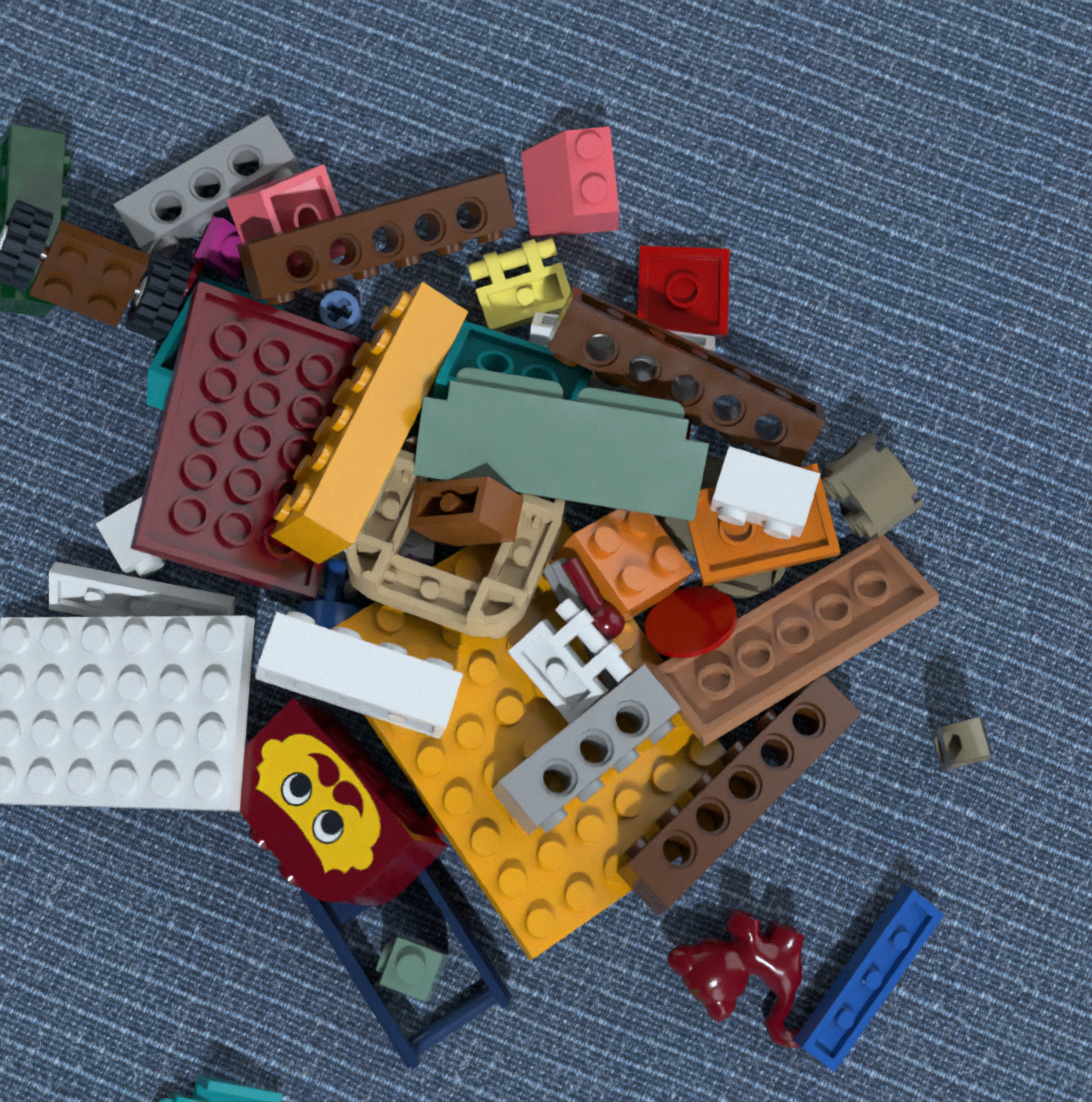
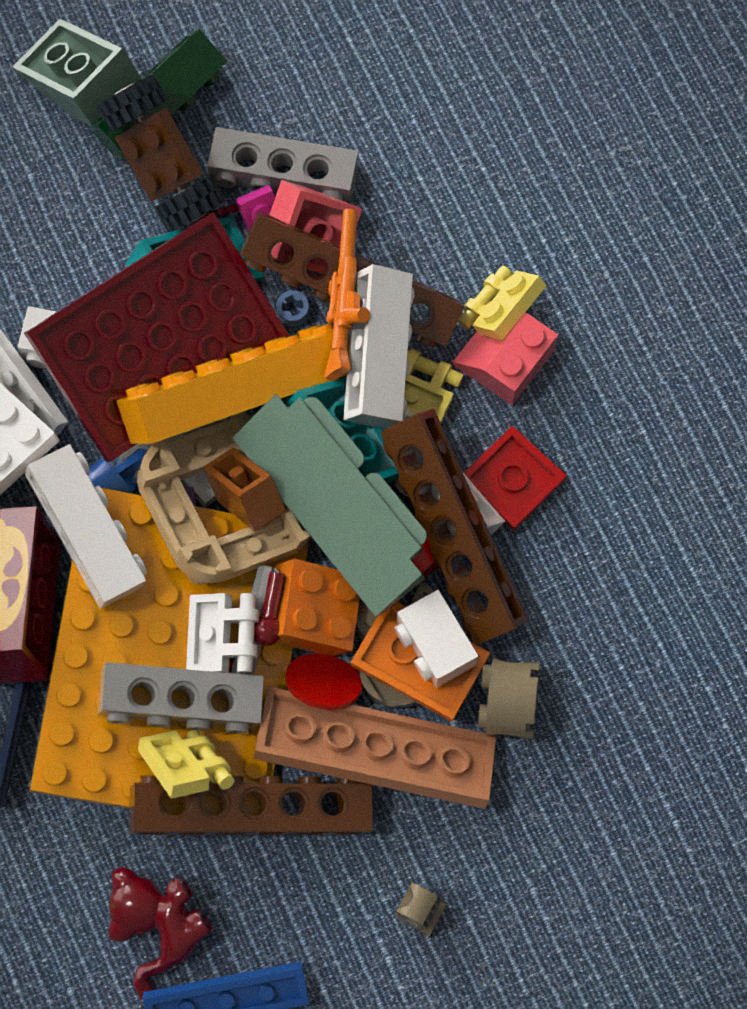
camera: 40 degrees right, 5 degrees down
(399, 256) = (344, 301): none -> orange piece
(470, 273) = (379, 348): none -> white brick
(537, 138) = (501, 302): none -> light yellow plate
(651, 815) = (184, 764): none -> light yellow plate

